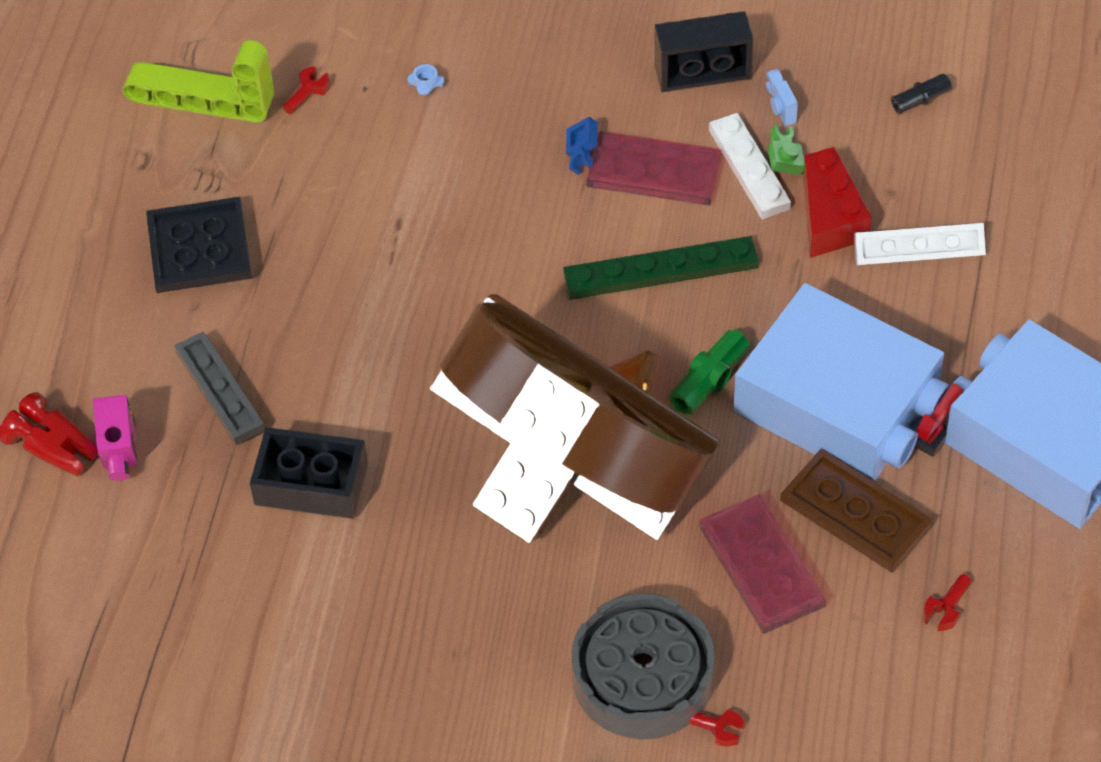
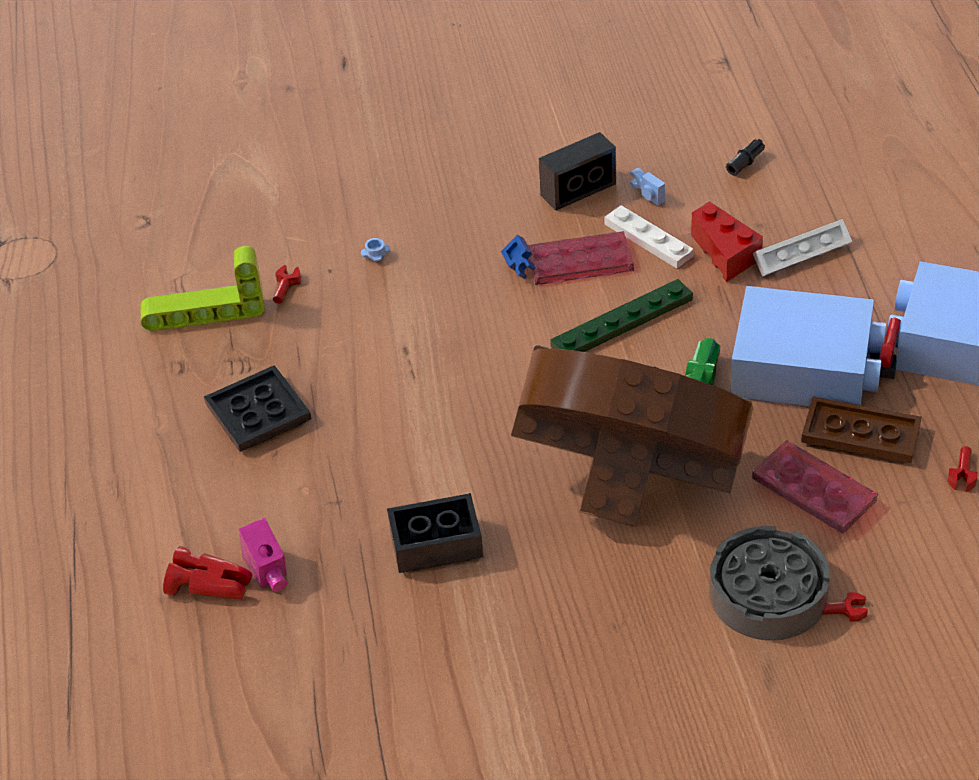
camera: 20 degrees left, 10 degrees down
(219, 388) = (328, 500): dark grey plate -> none
(784, 154) = (670, 220): bright green plate -> none

